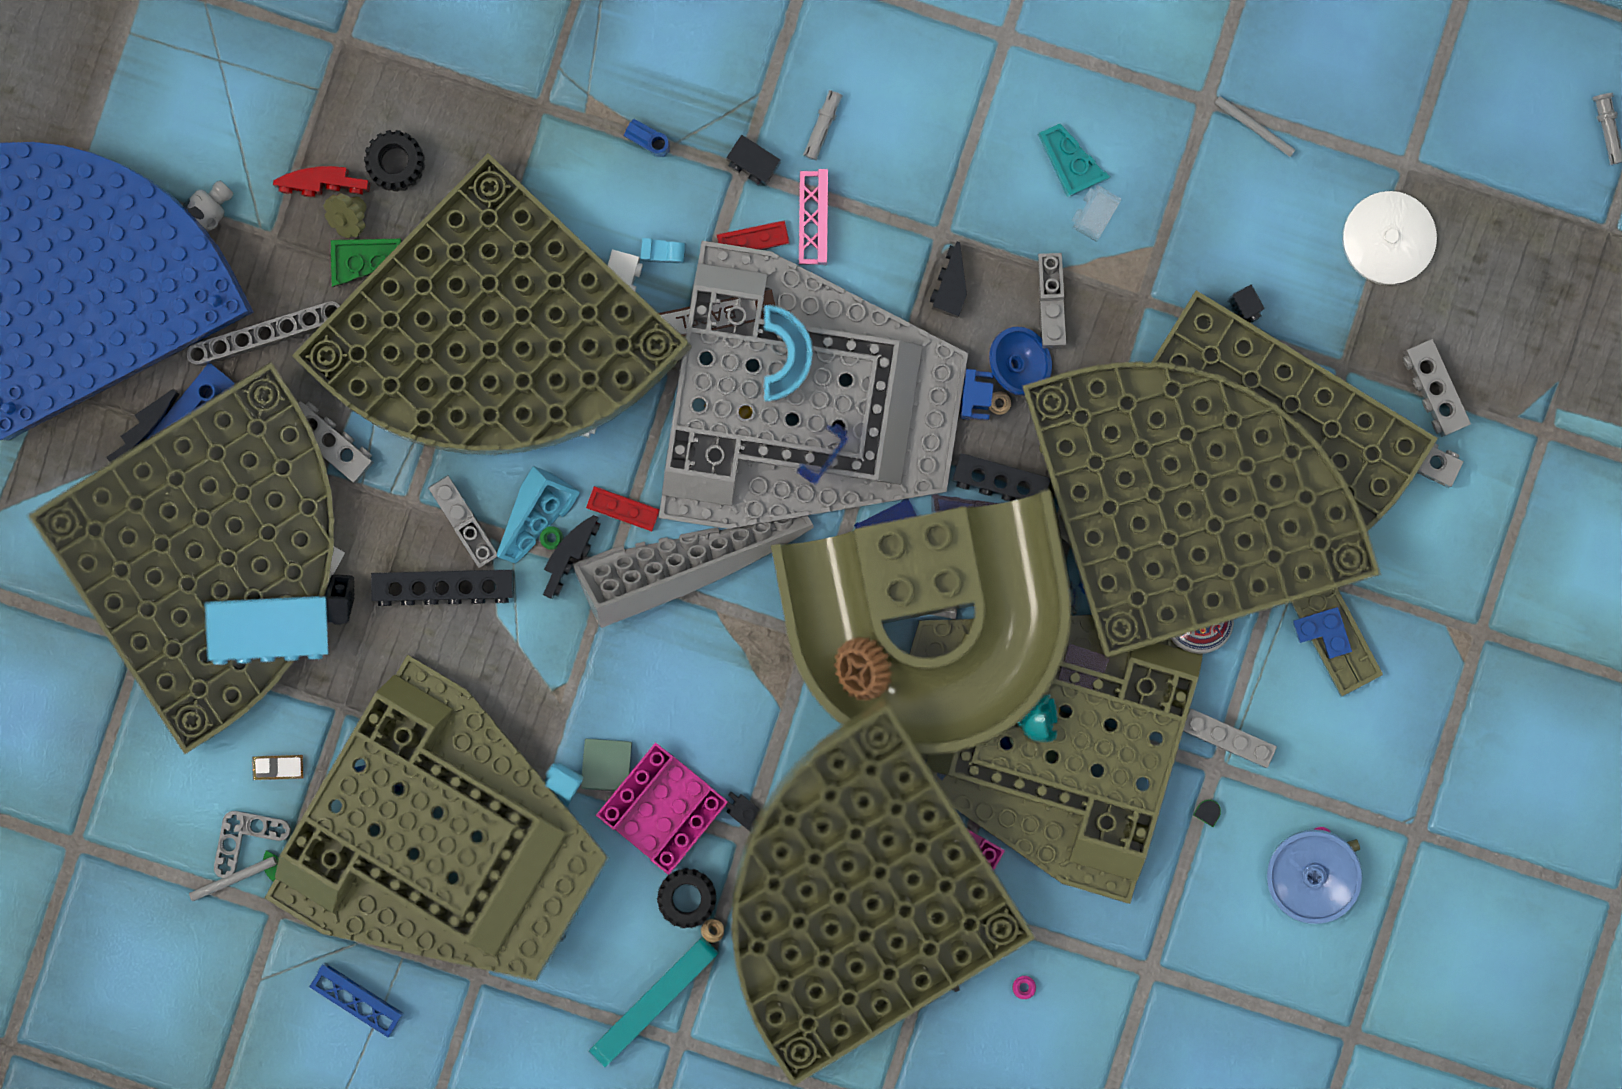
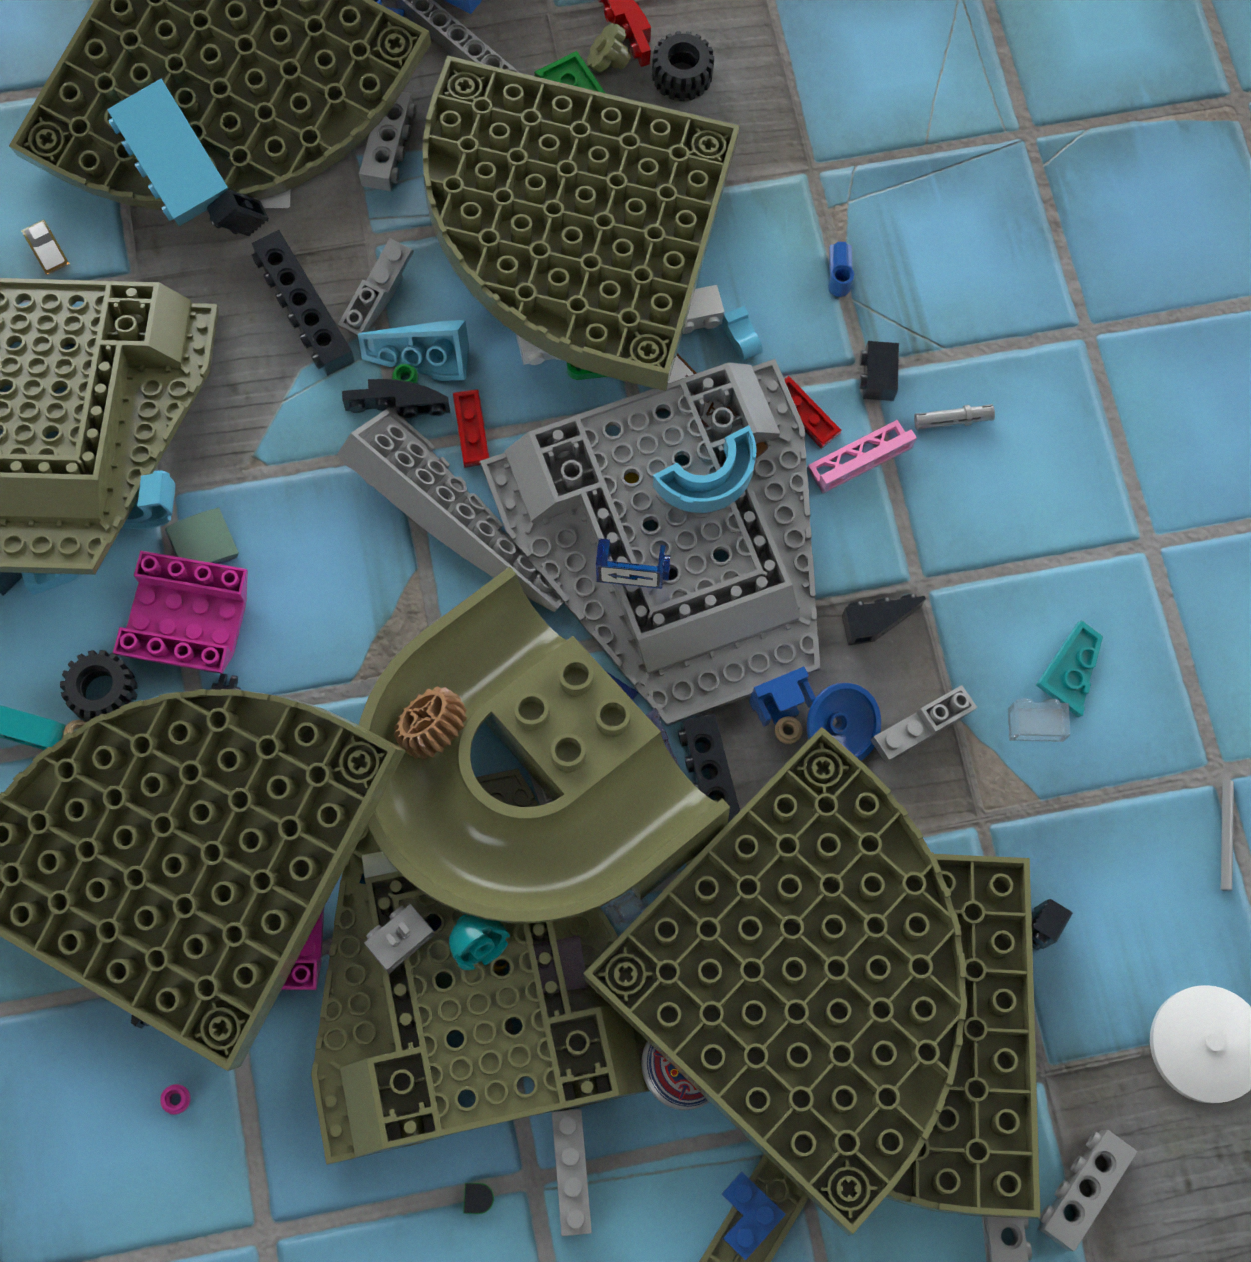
camera: 60 degrees right, 15 degrees down
(1007, 773) = (398, 937): none -> light grey brick

